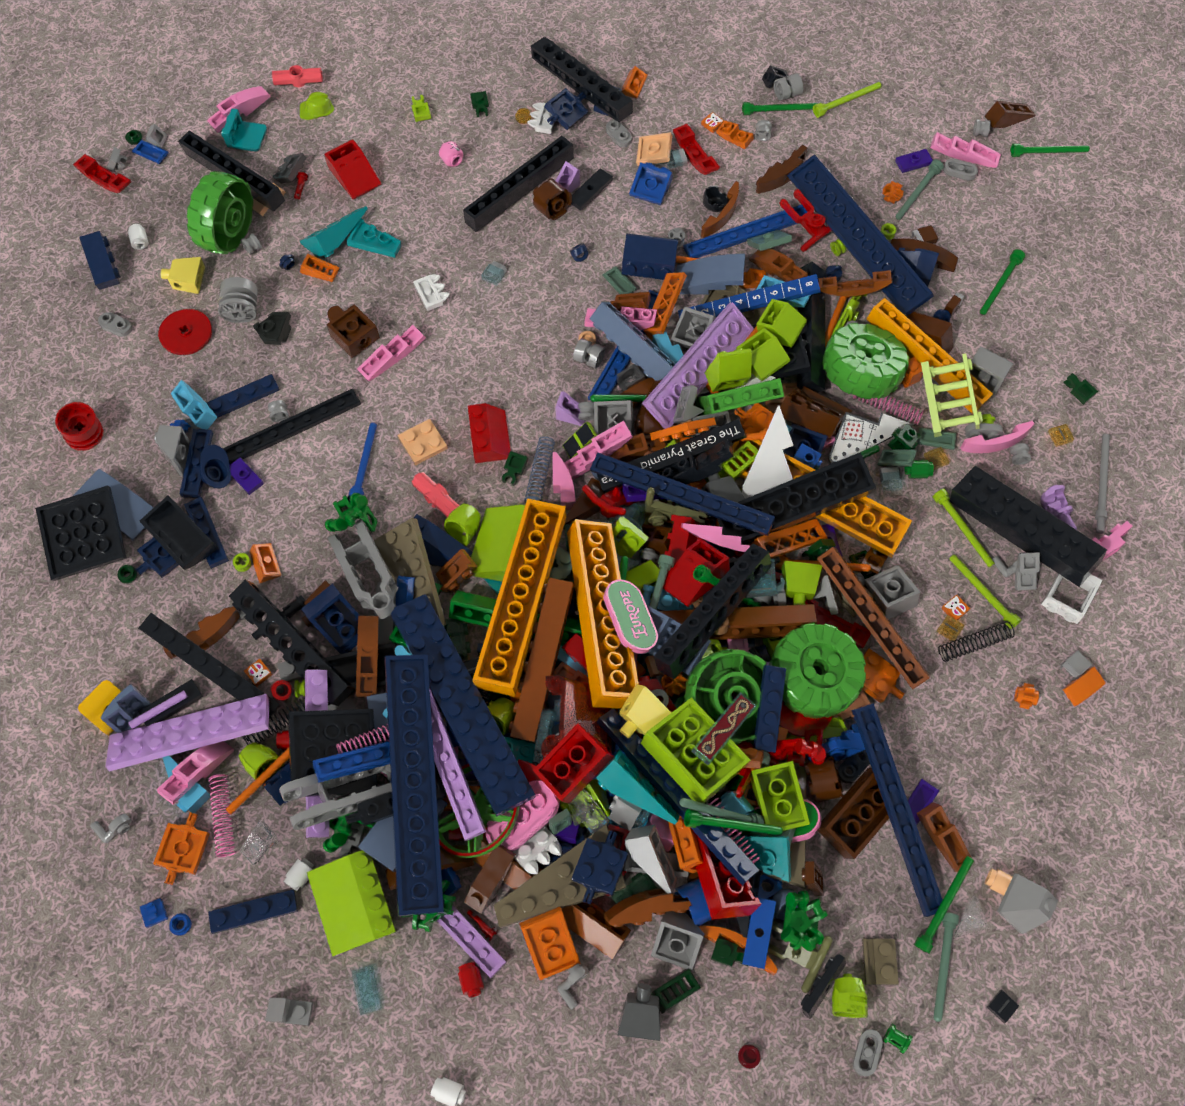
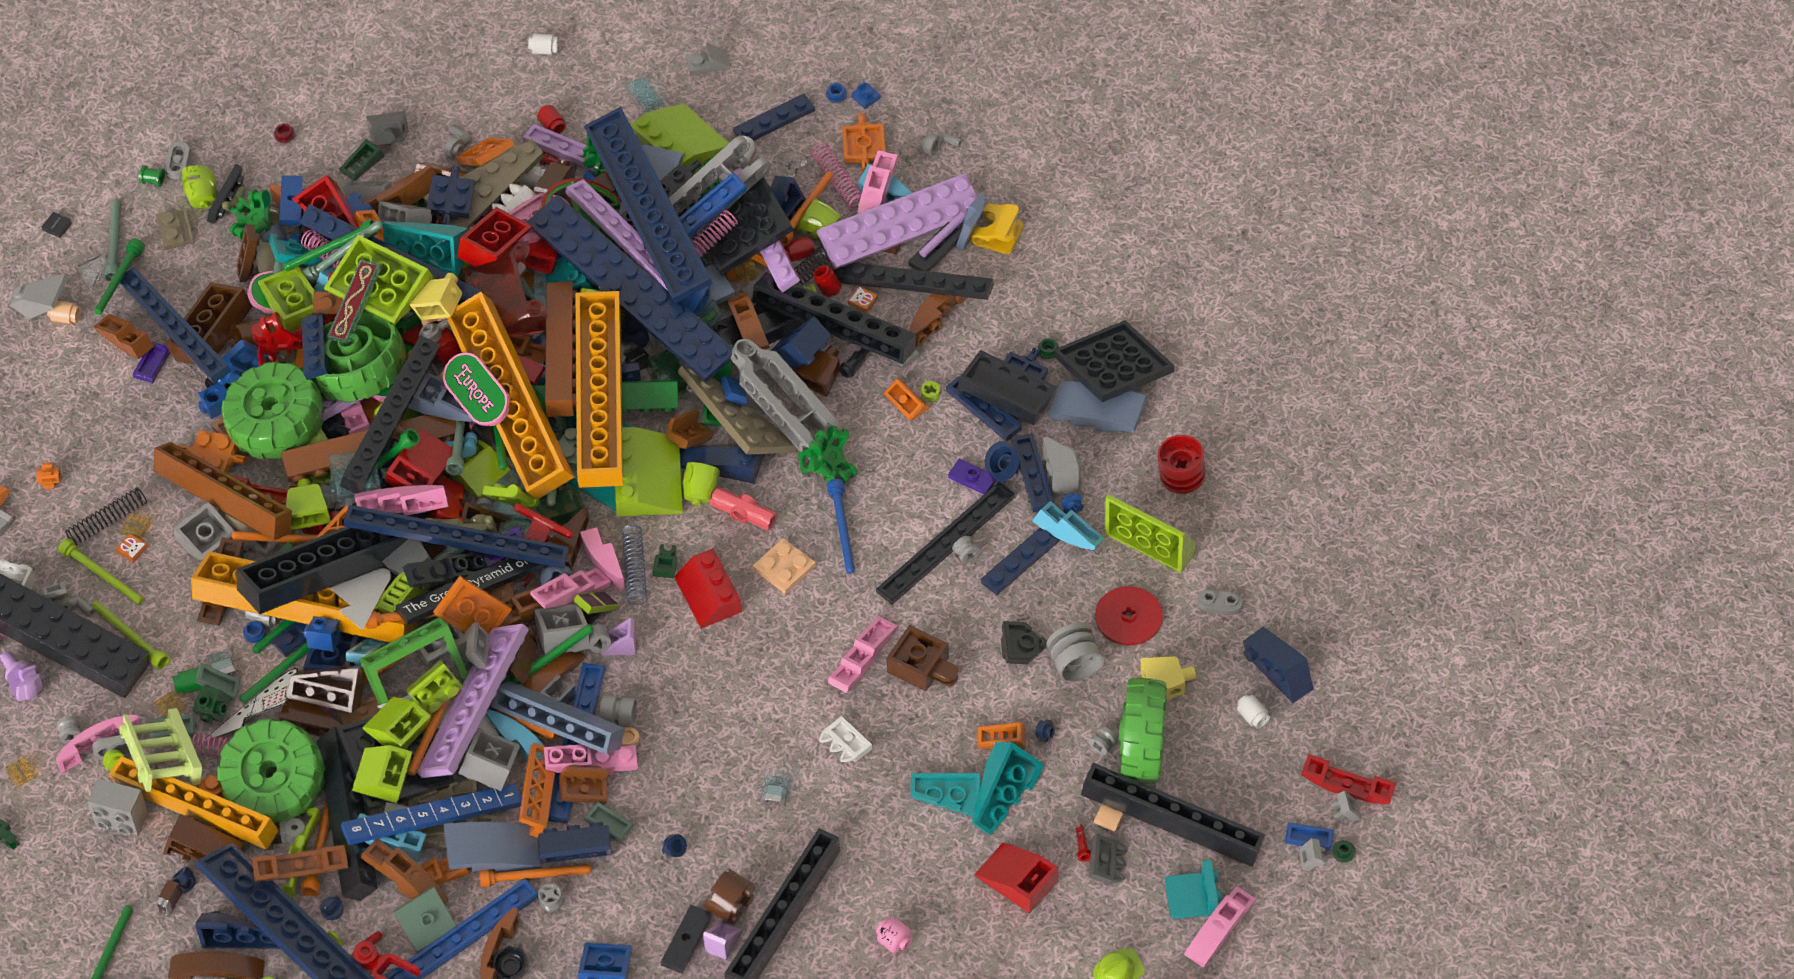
camera: 165 degrees right, 10 degrees down
(133, 375) = (1147, 534): none -> lime slope

